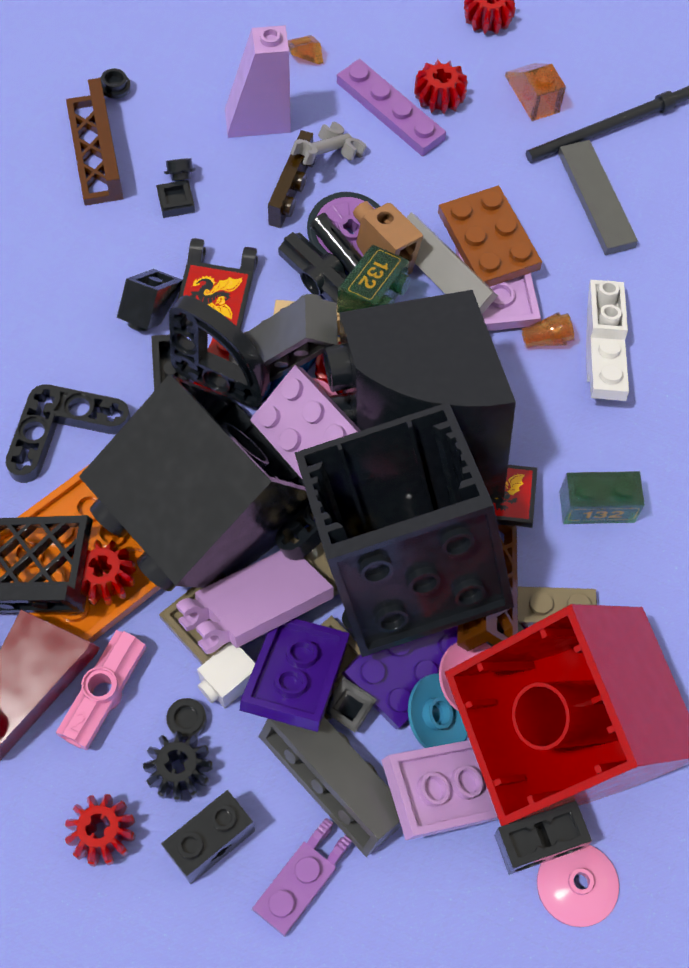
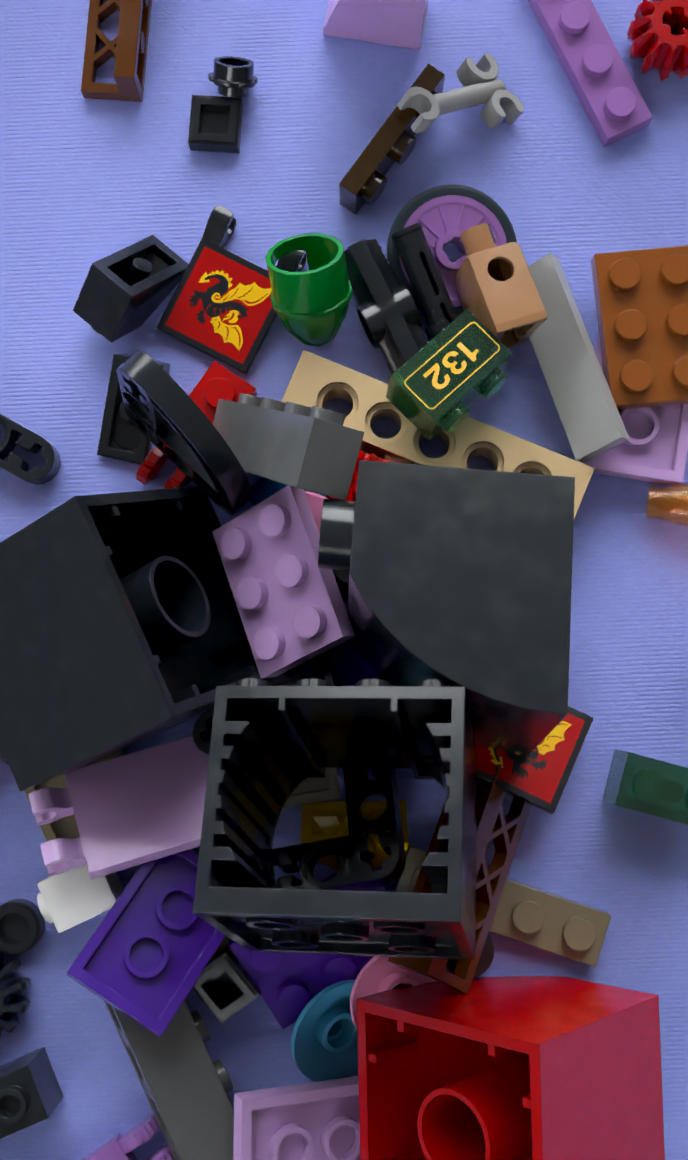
camera: 25 degrees right, 20 degrees up
(270, 266) = (315, 300): none -> green helmet

